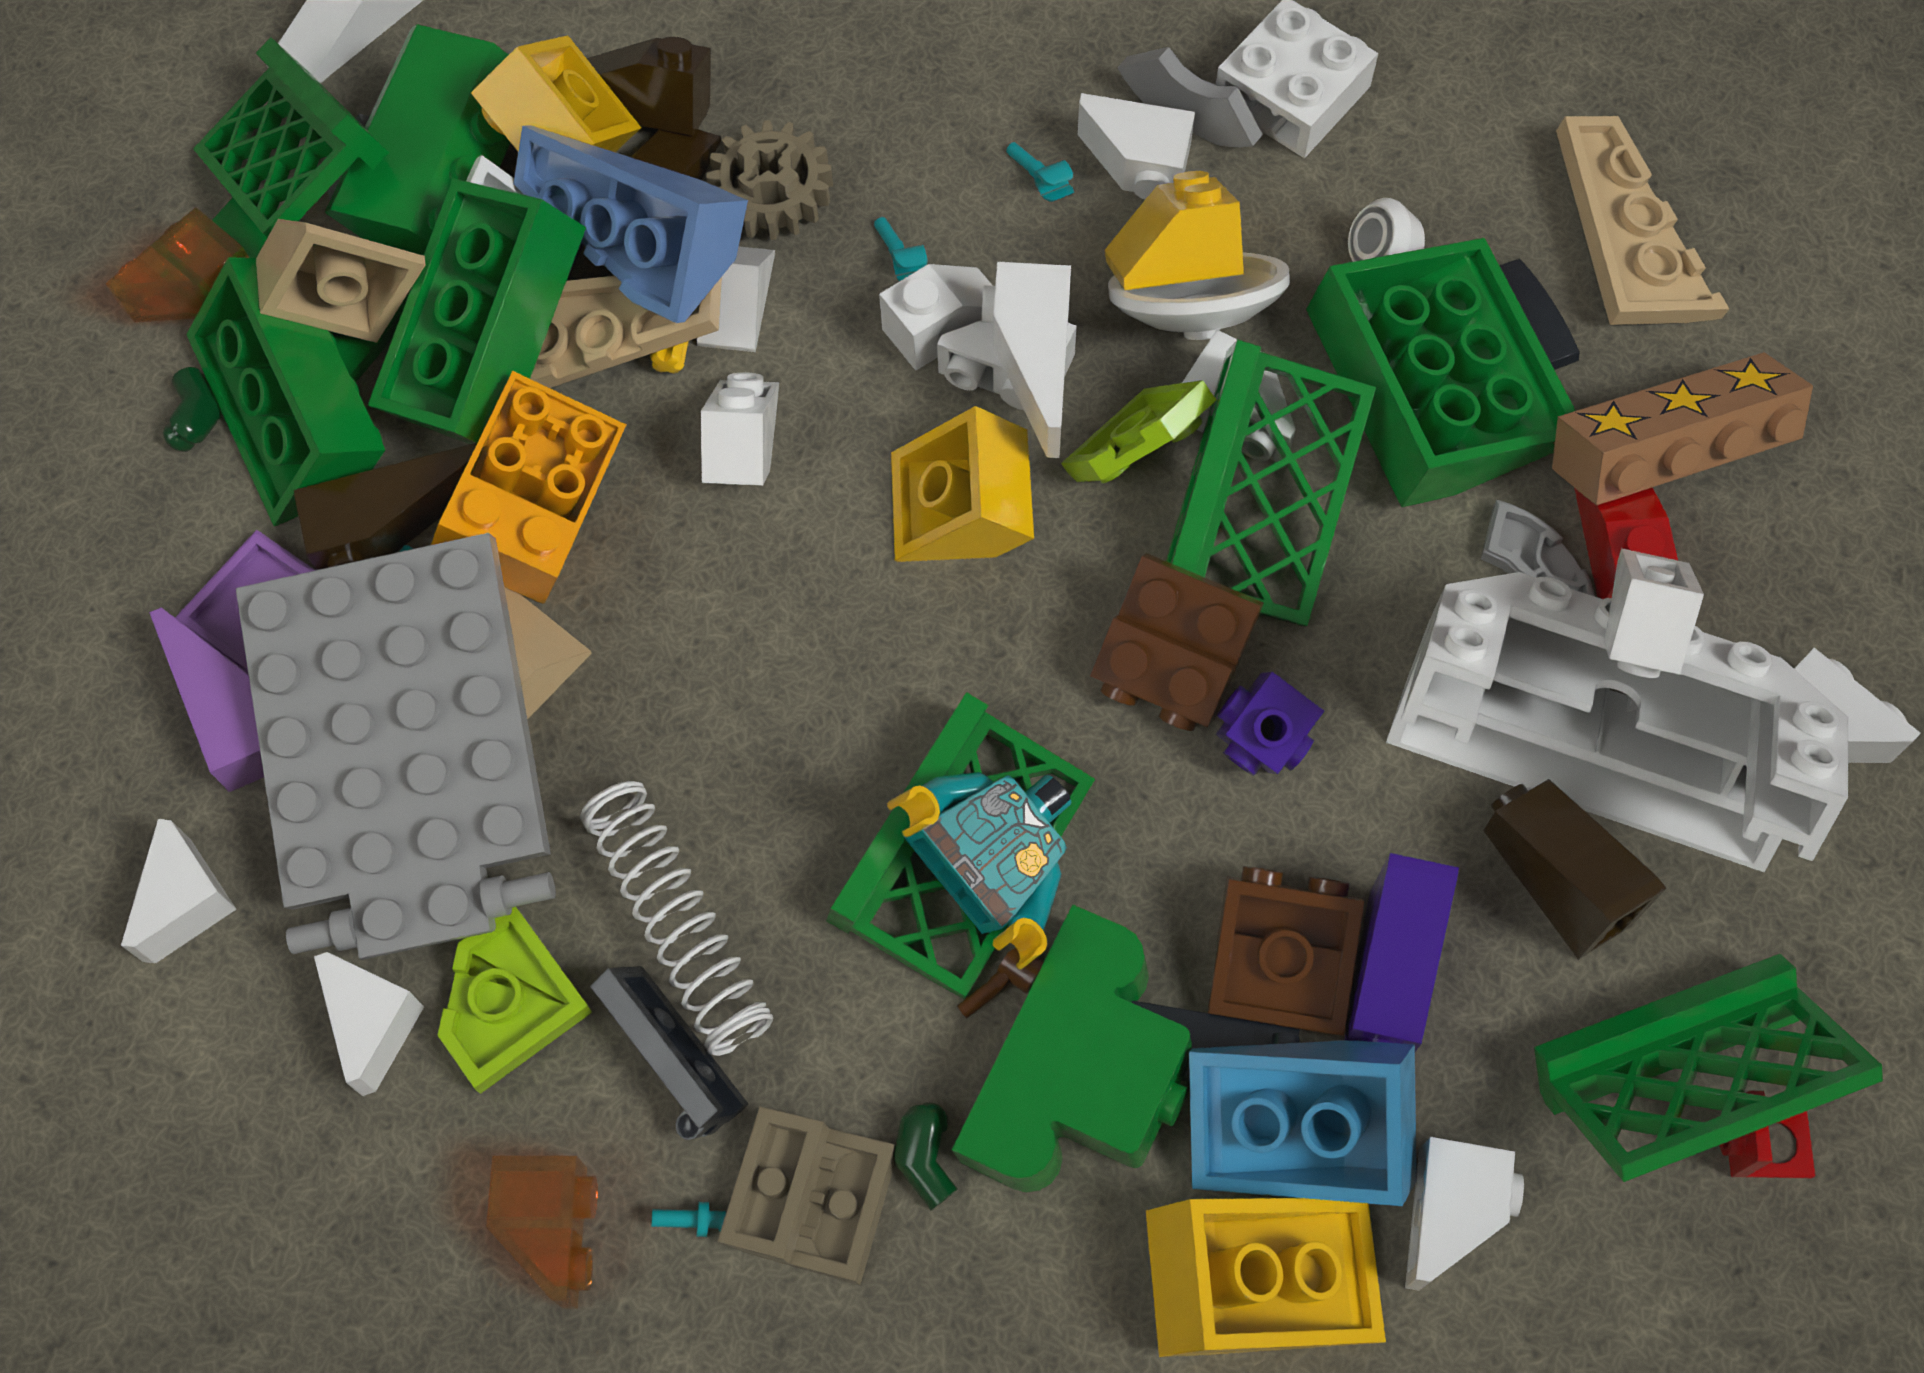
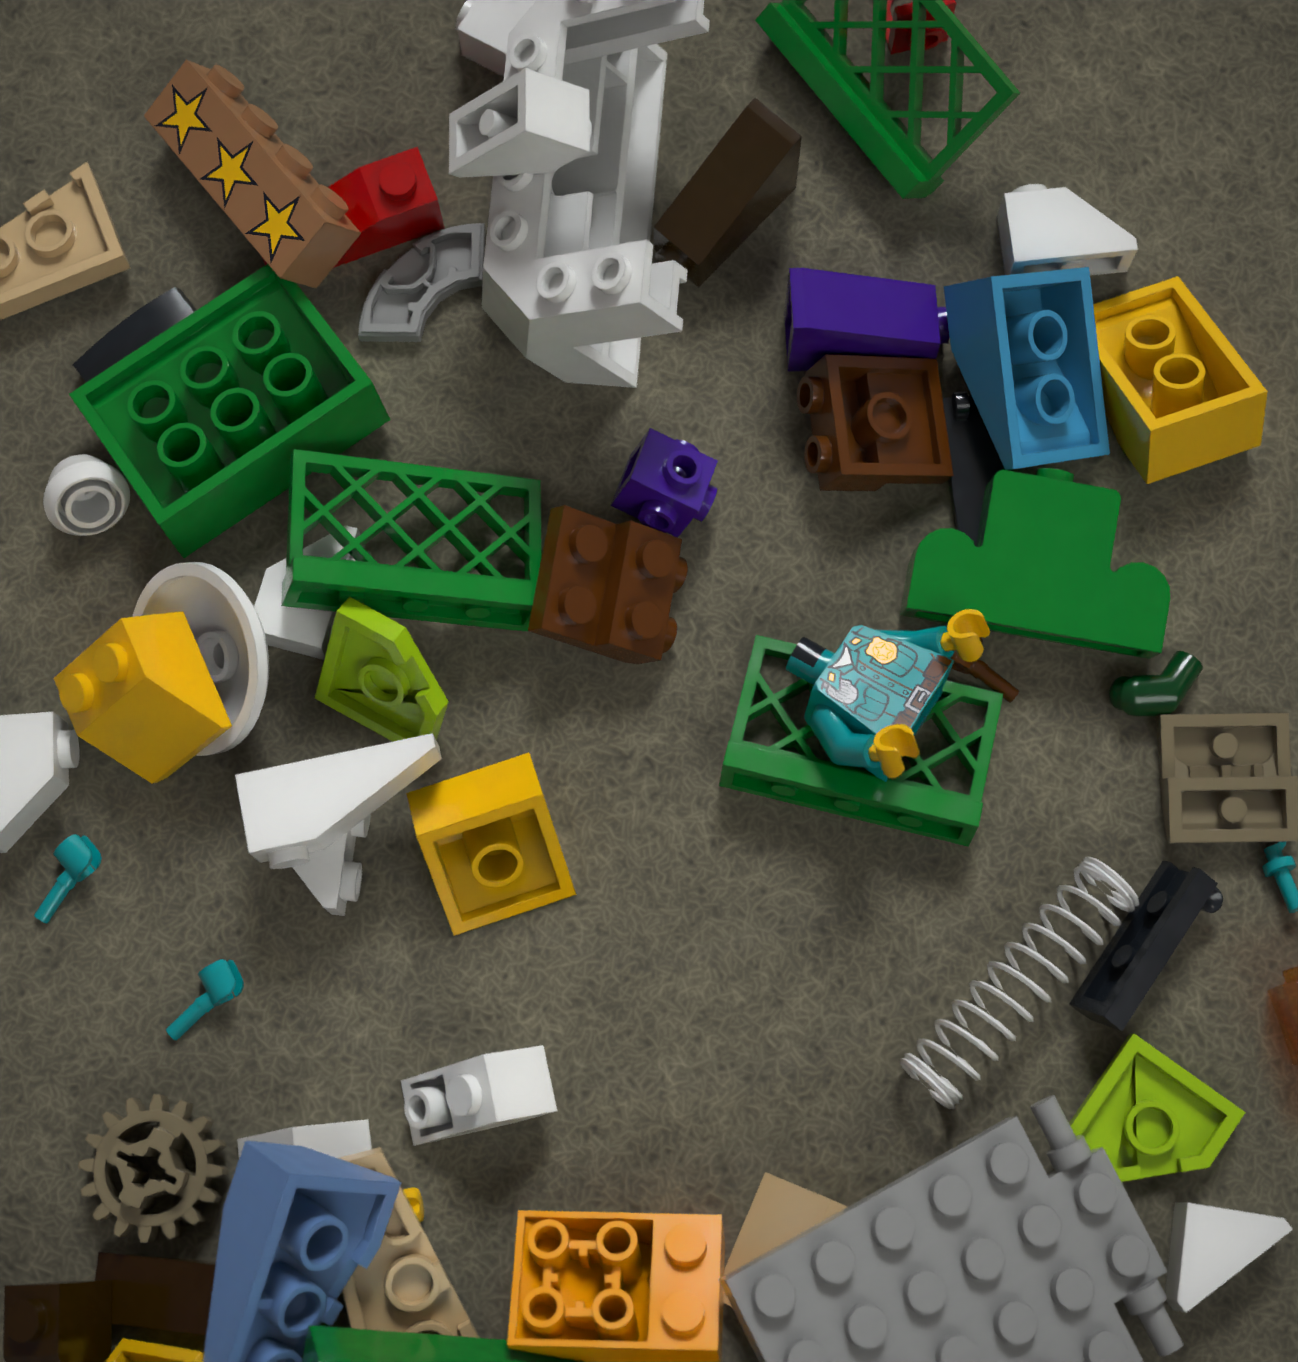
camera: 105 degrees left, 10 degrees up
(930, 305) = (277, 926): white slope -> none

